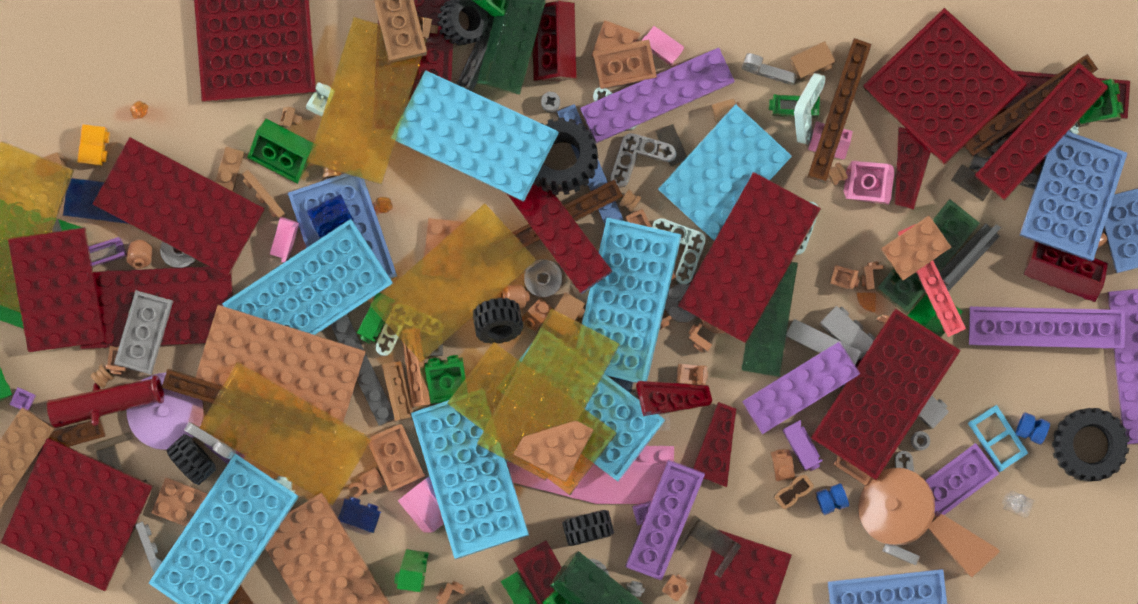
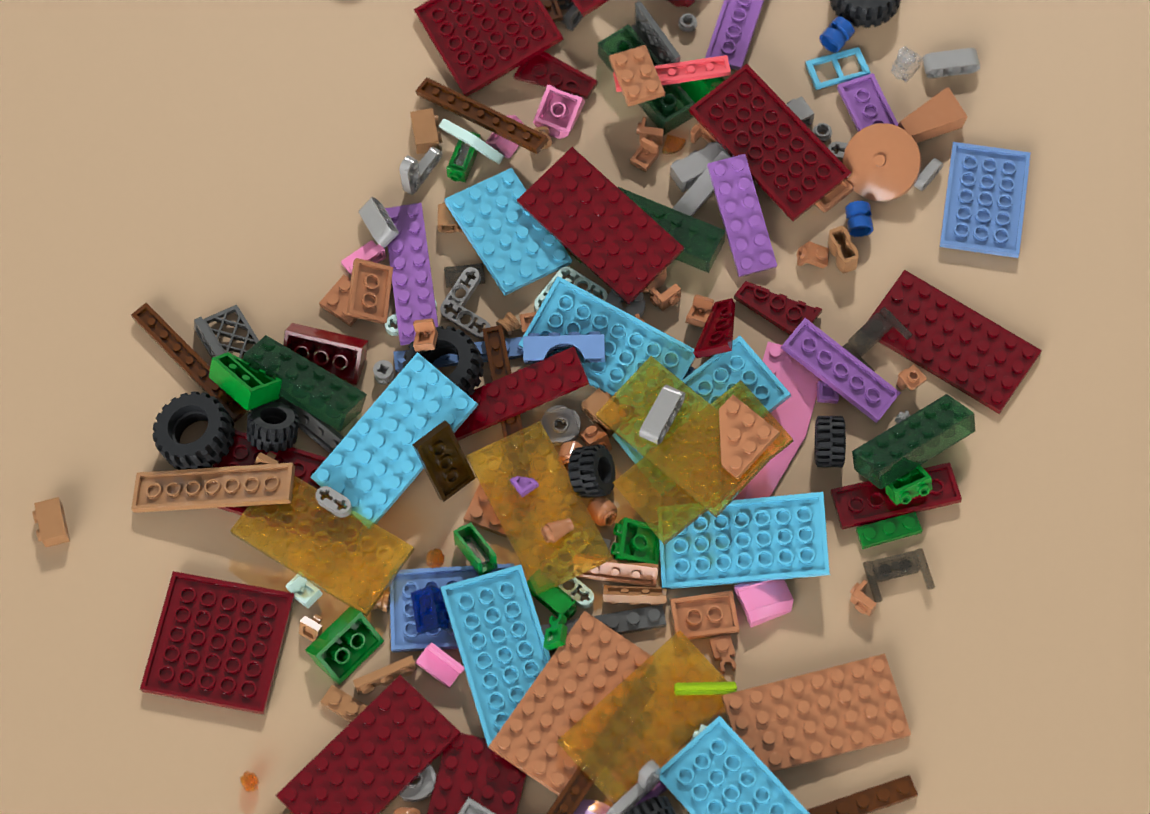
camera: 70 degrees left, 20 degrees down
(322, 476) = (705, 688): none -> lime axle
(337, 333) = (556, 634): none -> green plate
(359, 515) = (755, 667): clear blue bracket -> none
(398, 237) = (475, 549): none -> green window
(407, 101) = (335, 498): none -> light grey beam
(412, 571) = (832, 624): green wedge -> none
(428, 306) = (555, 530): none -> nougat cone
(466, 185) = (444, 461): none -> dark brown plate
(466, 263) = (524, 484): none -> medium lavender tile
(466, 340) = (602, 511): none -> nougat head
(559, 370) = (662, 414): none -> light grey beam
(576, 132) = (425, 335): none -> nougat bracket
(617, 285) = (538, 347): none -> medium blue arch
(698, 49) = (378, 222): none -> light grey beam
(802, 446) = (799, 233): medium lavender window -> none
(966, 180) = (587, 30): clear smoke tile -> none
(1013, 276) = (687, 18): none -> light grey plate
(1033, 547) = (951, 63): none -> light grey beam

